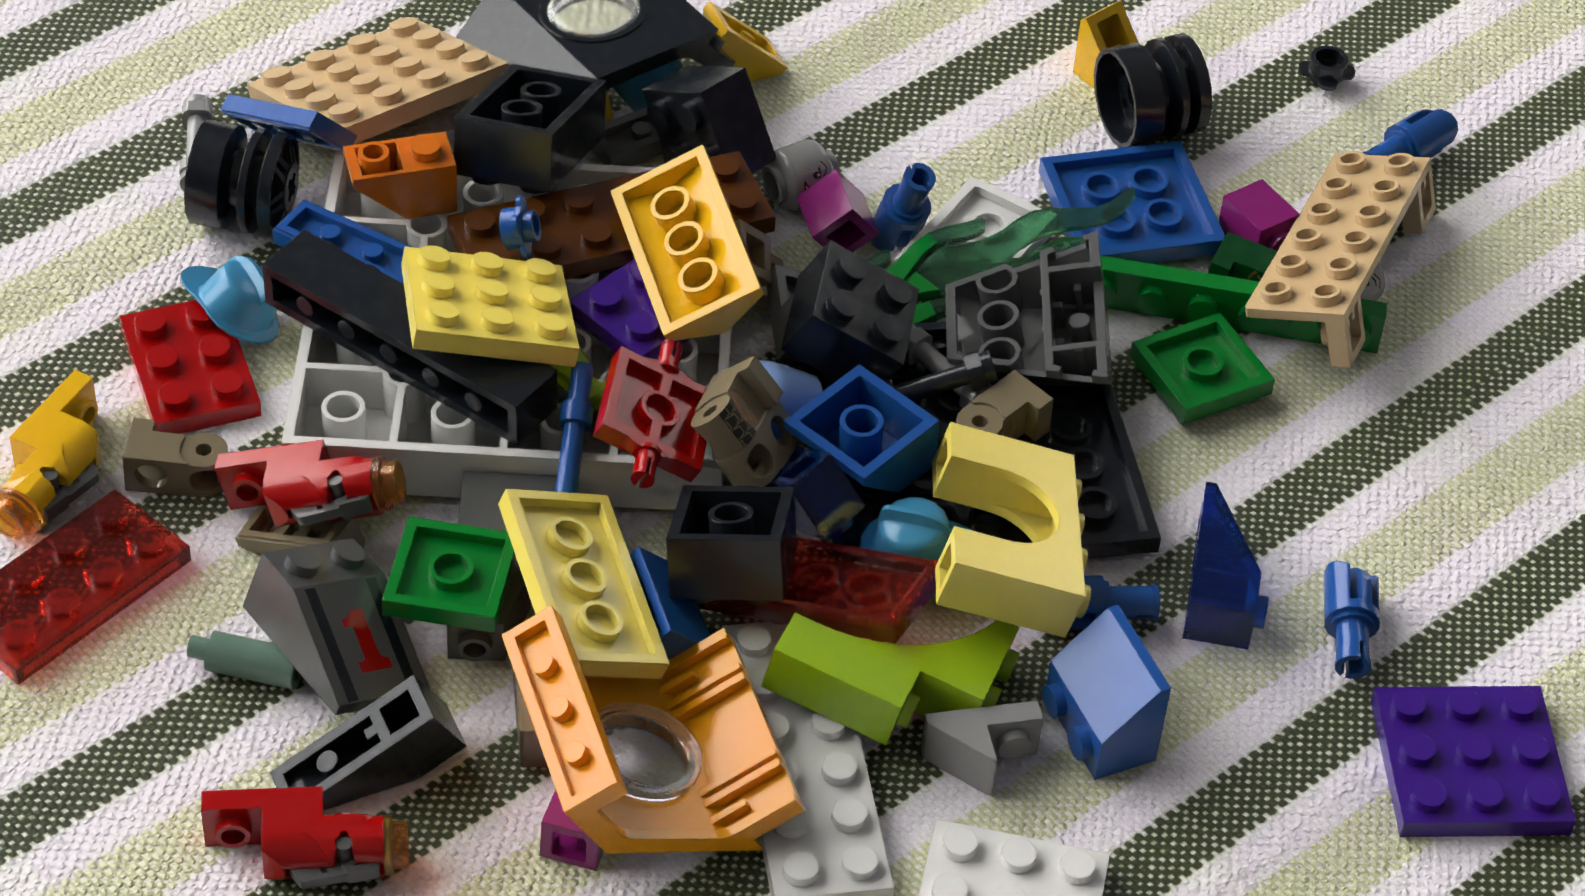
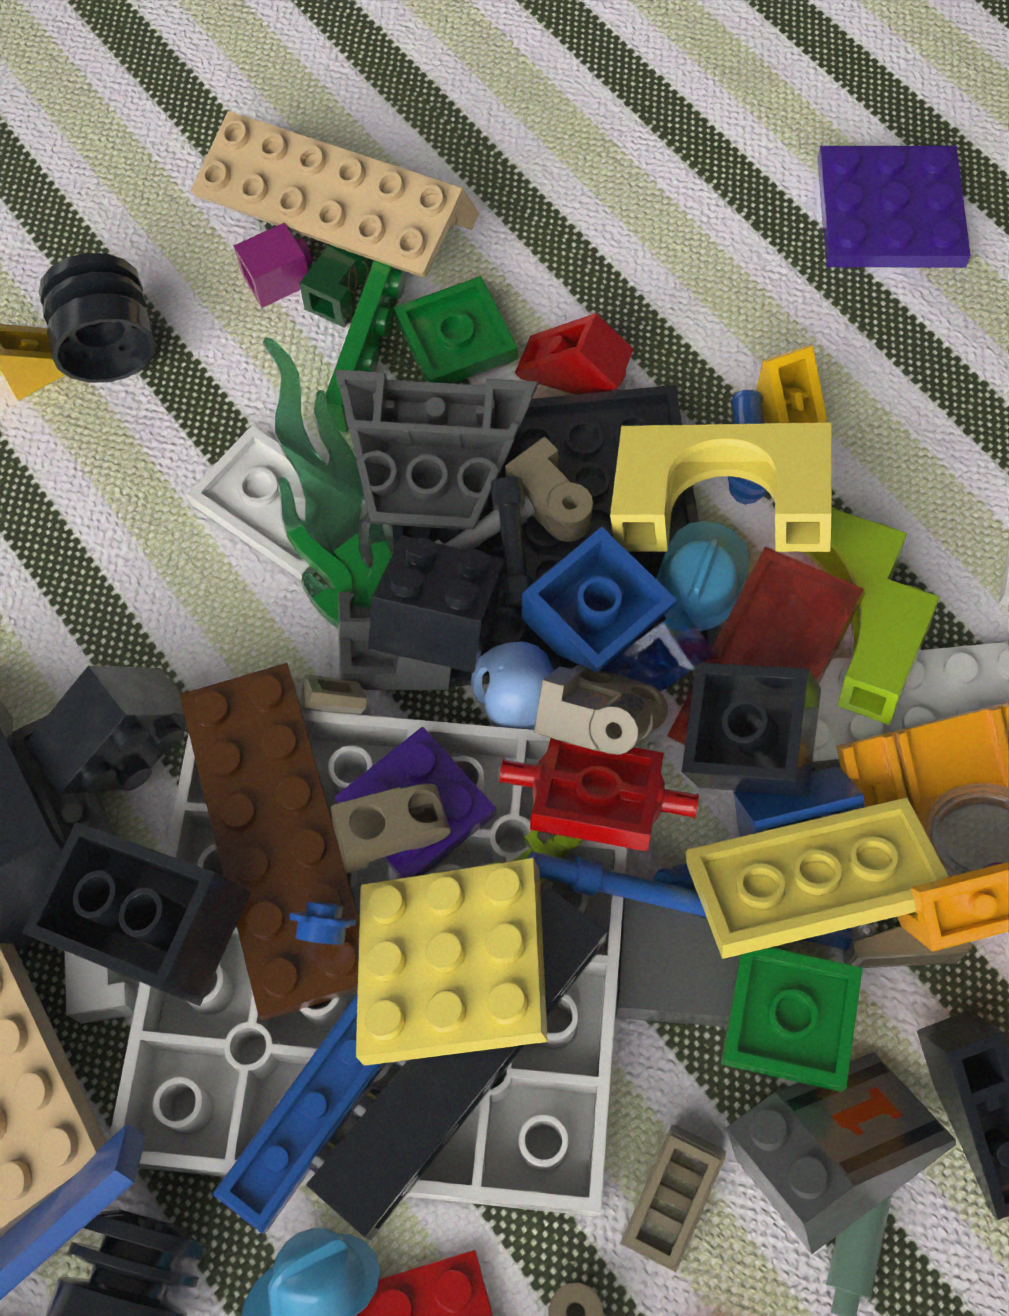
camera: 80 degrees left, 20 degrees up
(308, 486) = (657, 1180): red plate -> none
(406, 174) = (198, 1065): orange slope -> none
(609, 265) = (388, 824): none -> dark tan leg
(688, 247) = (357, 742): yellow slope -> none
(796, 170) = (171, 646): light grey head -> none
(837, 212) = (234, 621): magenta brick -> none
(904, 208) = (247, 553): blue arm -> none
(974, 738) = (922, 555): light grey slope -> none
(1108, 696) = (882, 438): slope -> none
(1170, 209) = (218, 369): blue plate -> none
(1172, 628) = (792, 388): none -> yellow slope
(1180, 464) = (576, 357): none -> red slope
(1223, 579) = (708, 346): clear blue slope -> none
(1327, 67) = (57, 188): black plate -> none
(1351, 615) = (753, 259): blue arm -> none
(1418, 134) = (174, 133): blue arm -> none

